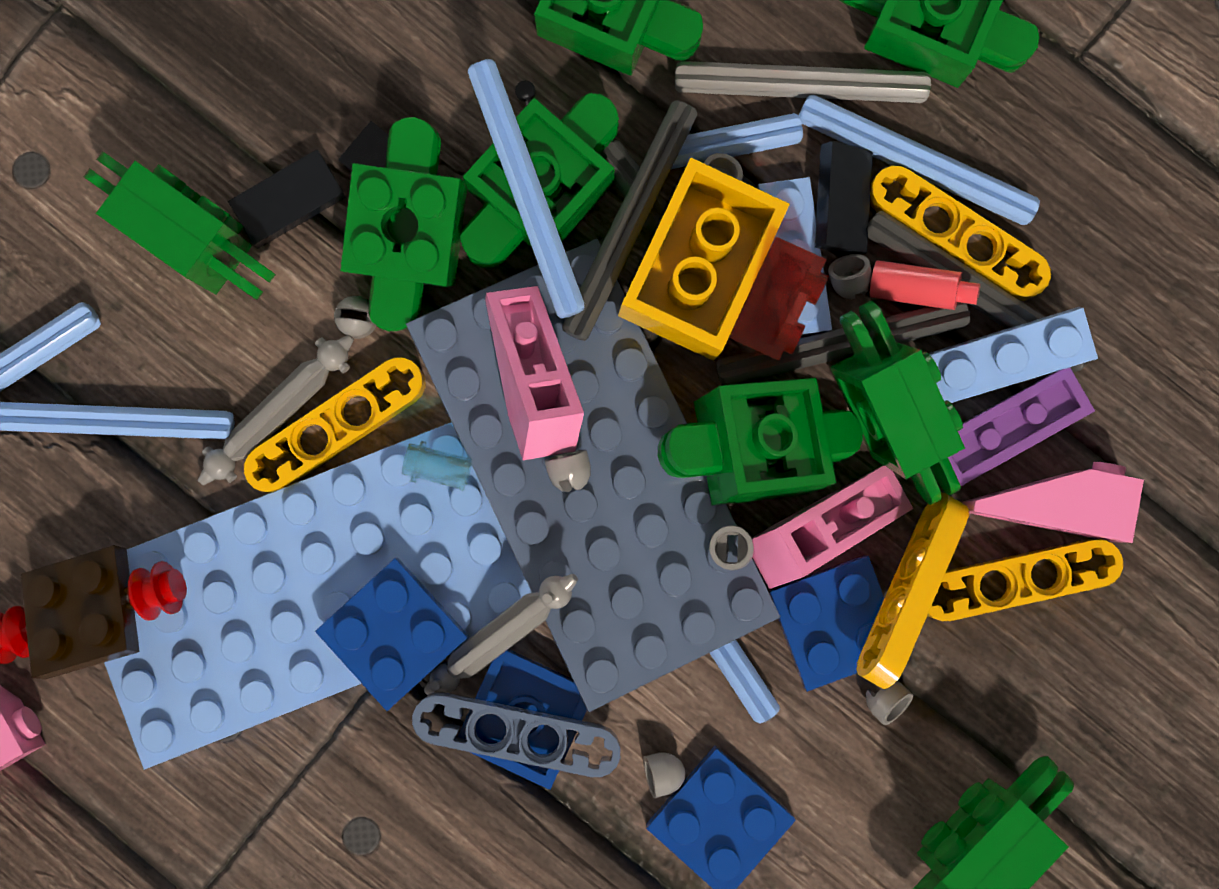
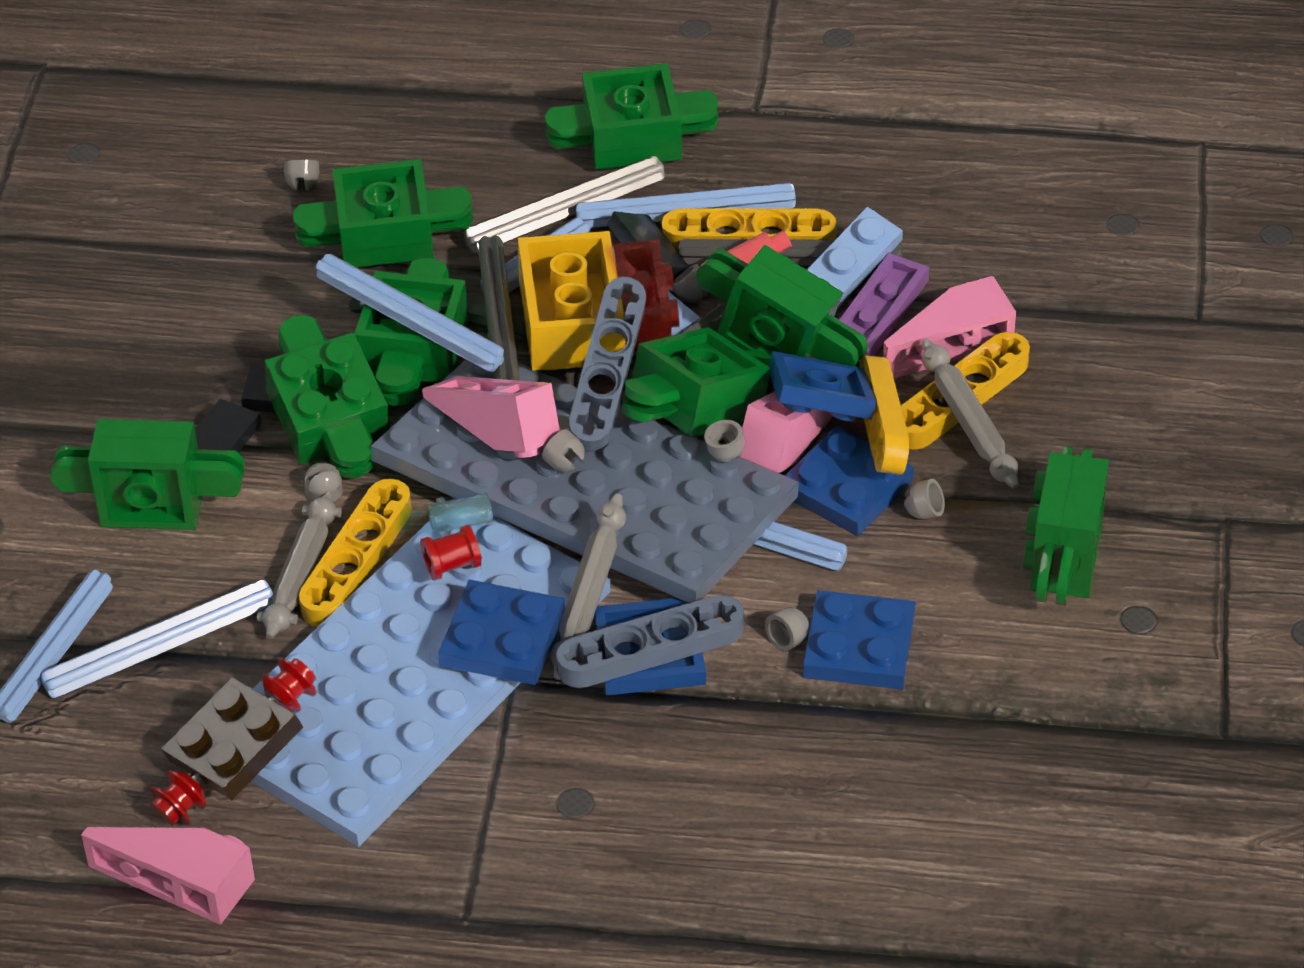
camera: 30 degrees left, 40 degrees down
(396, 515) = (451, 552): none -> red bush
(667, 390) = (607, 363): none -> sand blue beam
(873, 529) = (821, 385): none -> blue plate
(1000, 632) = (970, 413): none -> light grey wheel

